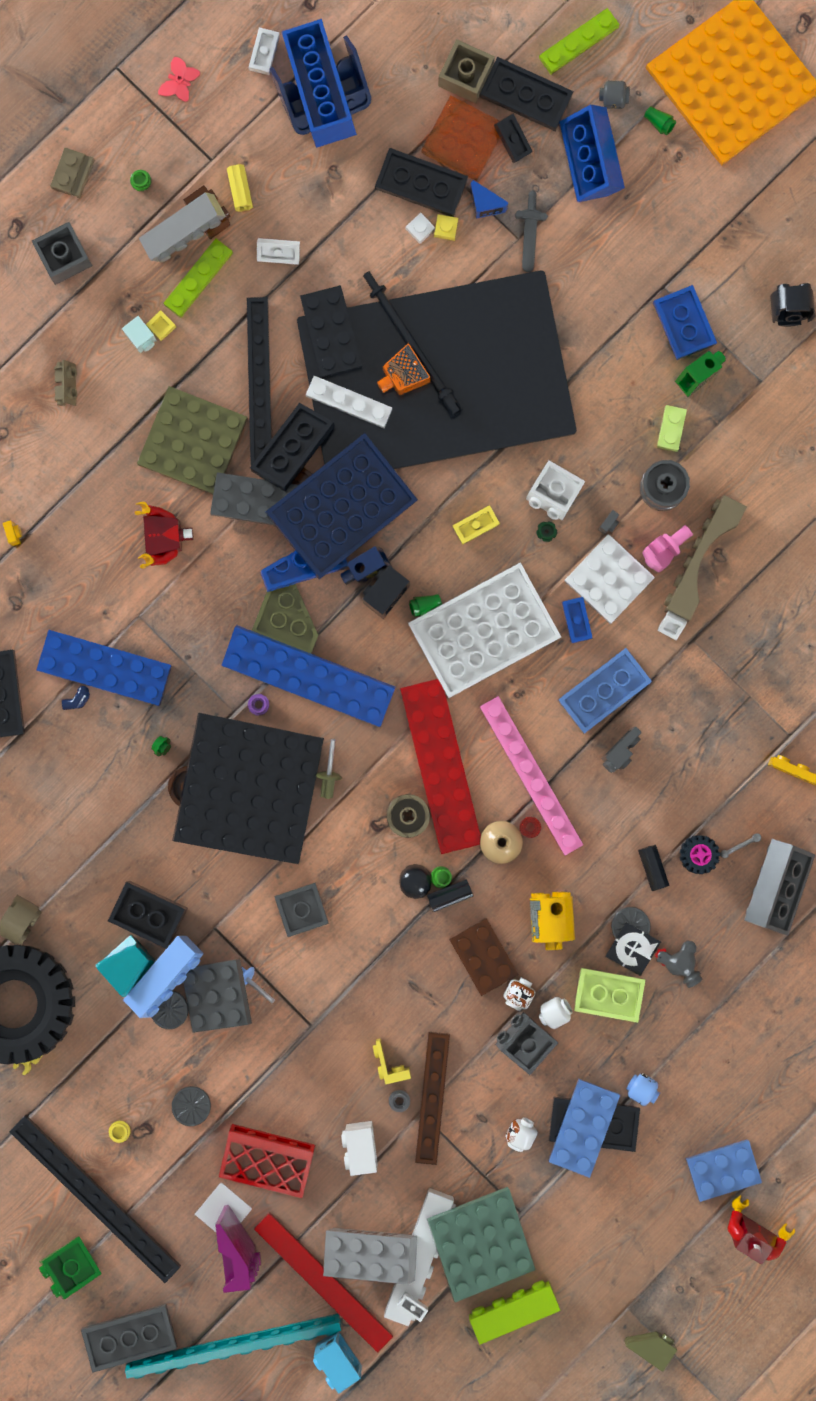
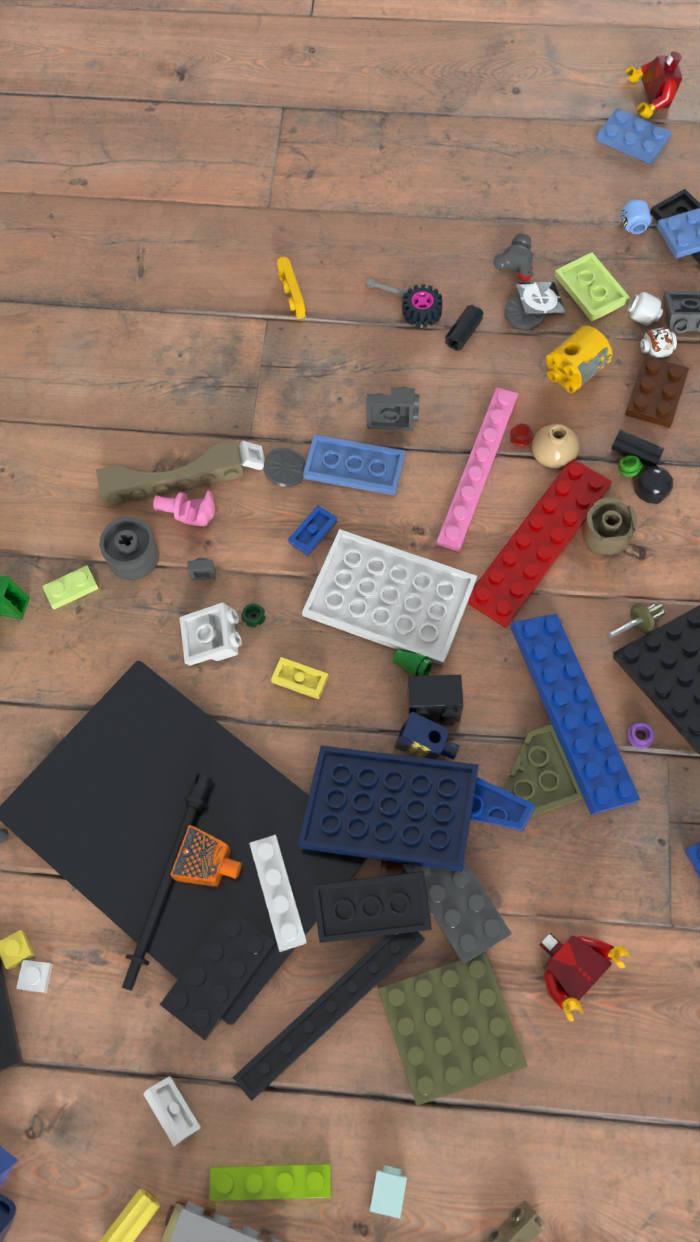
camera: 130 degrees left, 20 degrees down
(161, 325) = (358, 1176): light yellow plate -> none
(609, 579) = (253, 535): white plate -> none
(644, 642) = (284, 467): none -> dark grey wheel
(779, 887) = (395, 239): dark grey slope -> none

